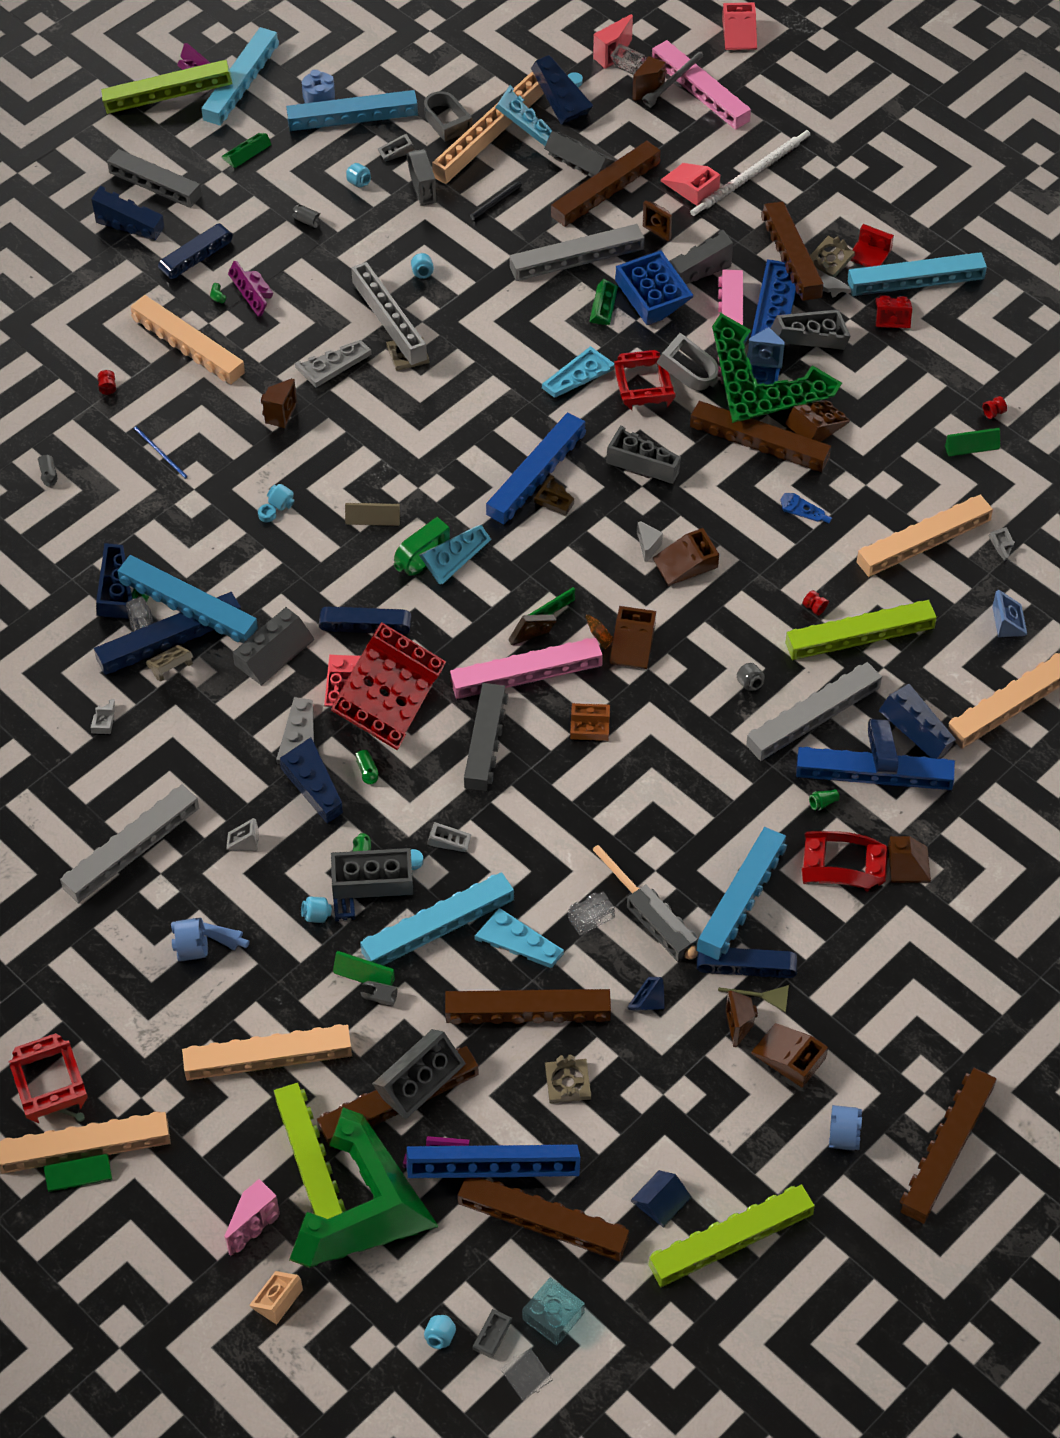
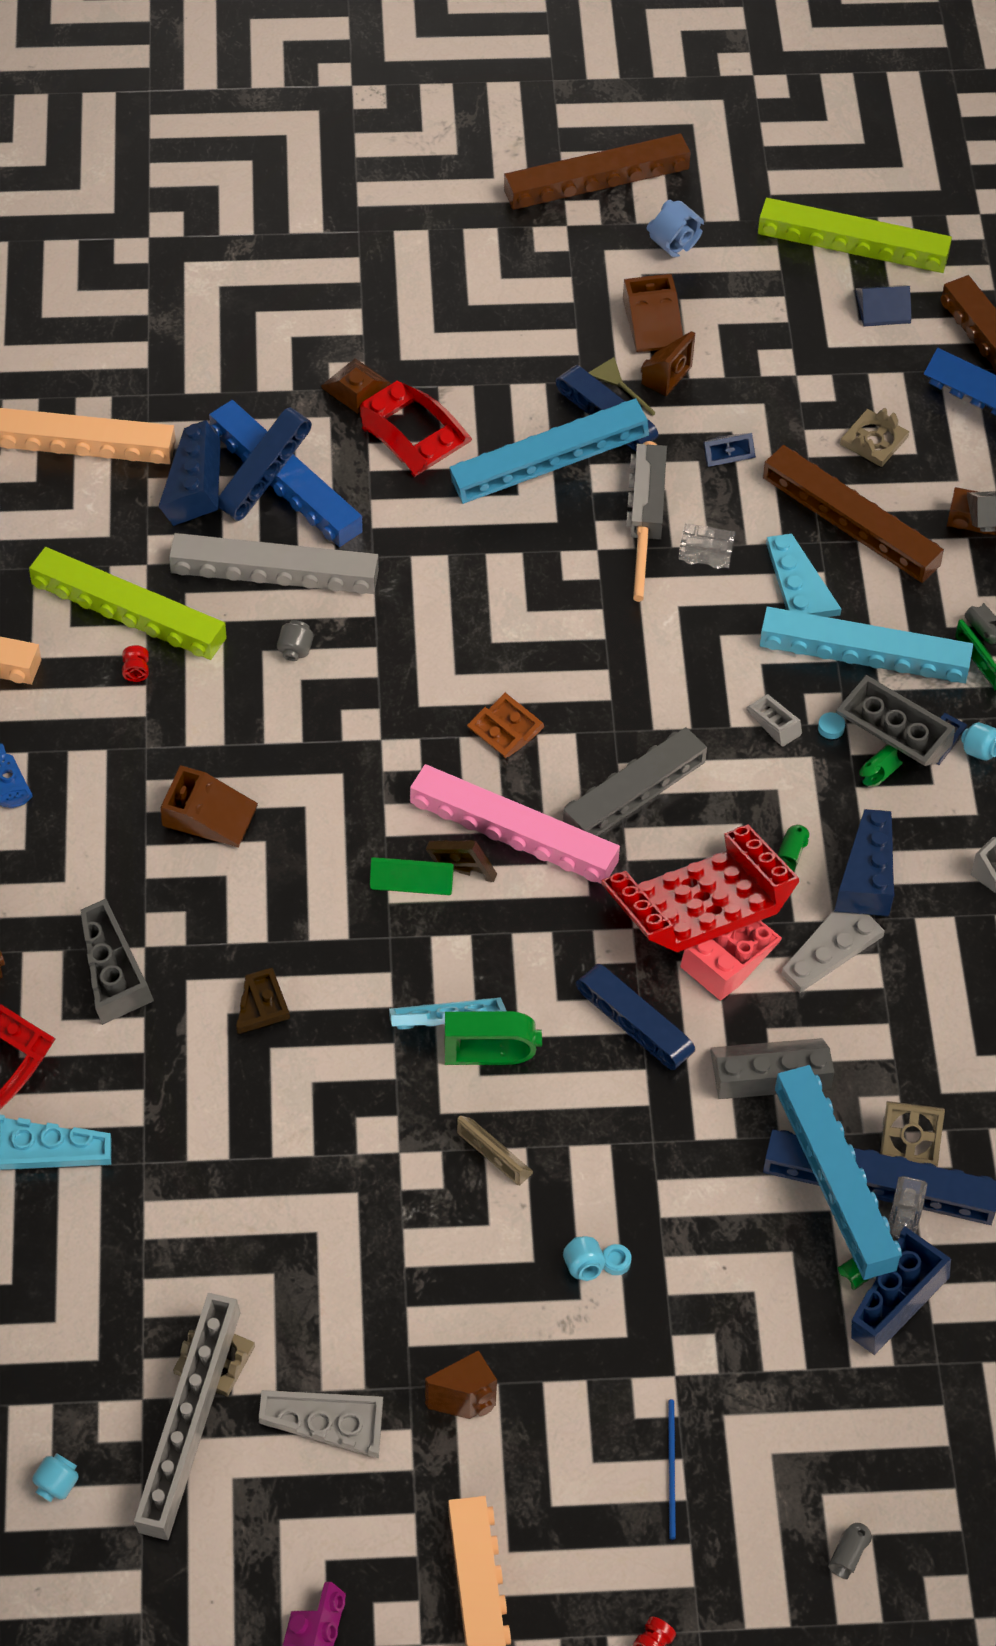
camera: 140 degrees left, 0 degrees up
(535, 468) = (241, 1052): blue brick -> none
(599, 631) = (399, 790): clear orange slope -> none
(633, 637) = (364, 768): reddish brown slope -> none
(649, 539) = (223, 861): light grey slope -> none
(822, 799) = (367, 485): green cone -> none

